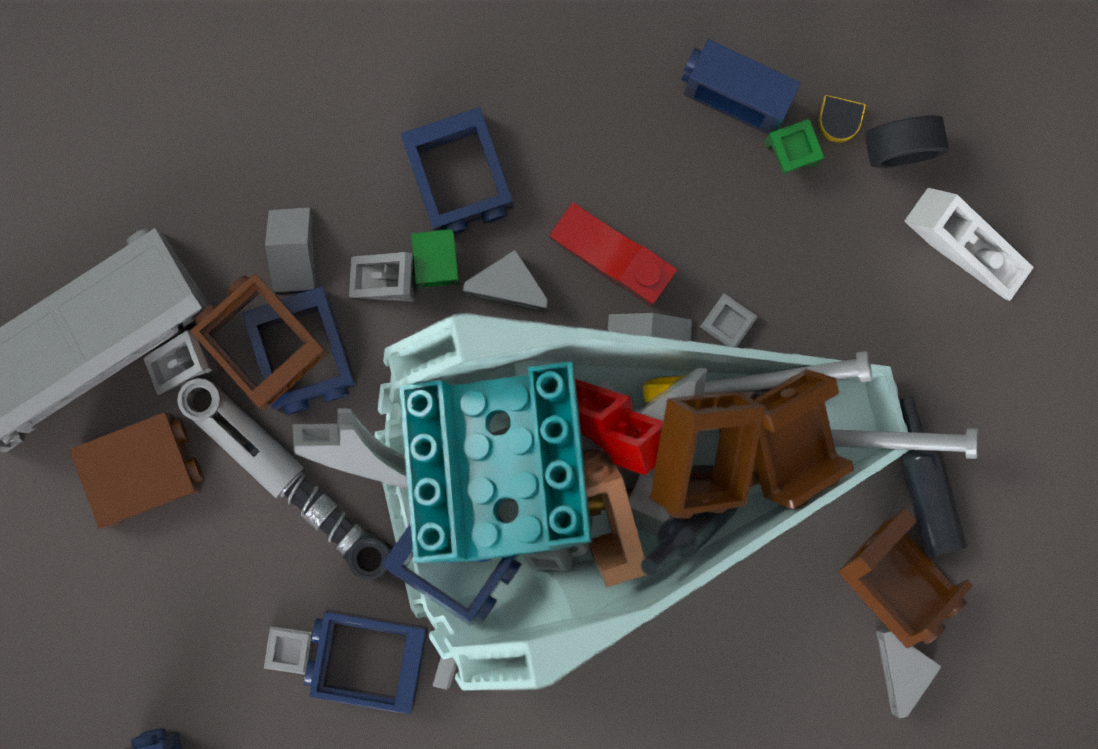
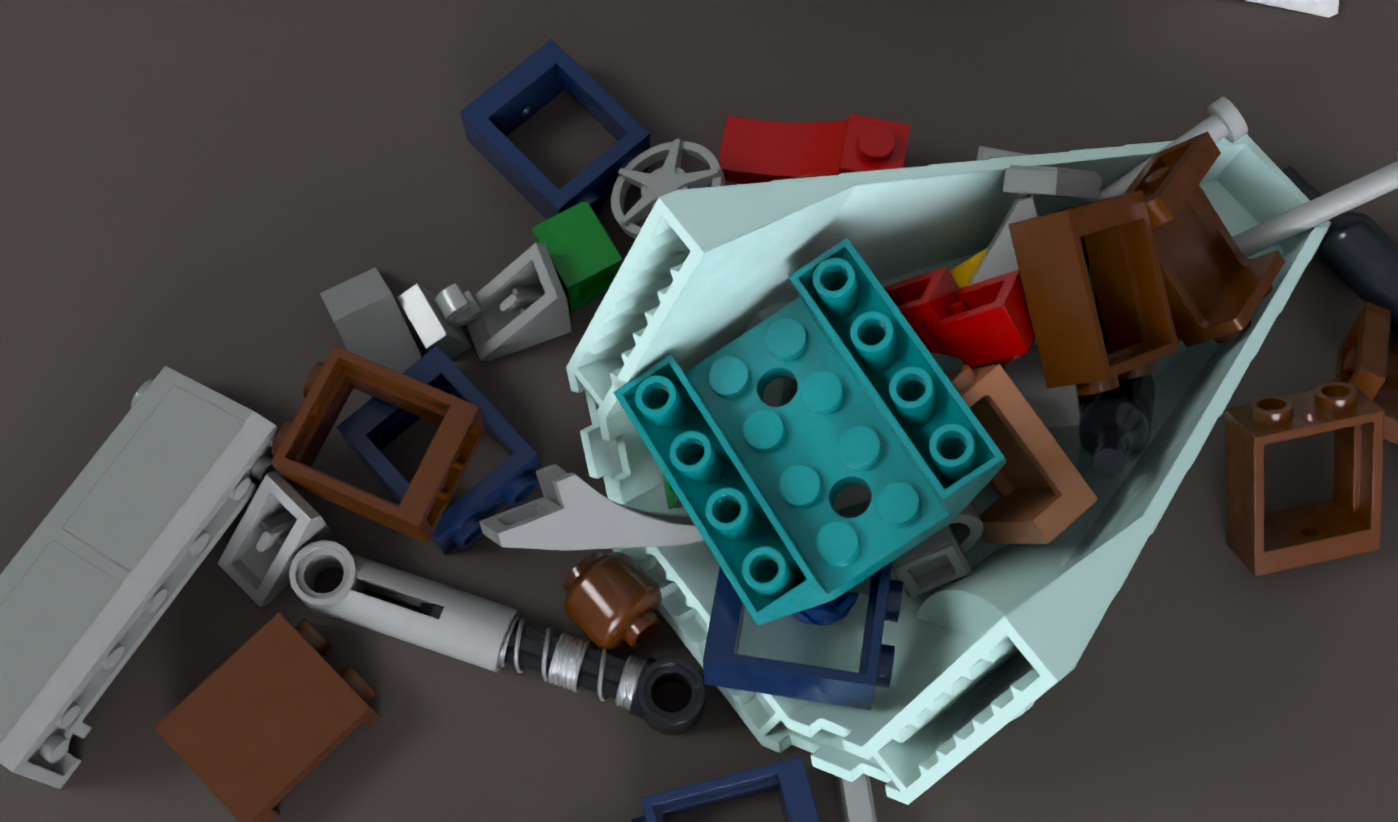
camera: 25 degrees left, 15 degrees down
(332, 263) = (440, 316): none -> light grey tile
(359, 495) = (612, 600): none -> reddish brown head
(504, 247) = (662, 180): none -> light grey wheel
(718, 373) = (1052, 182): none -> light grey tile
(810, 632) = (1316, 530): none -> reddish brown window

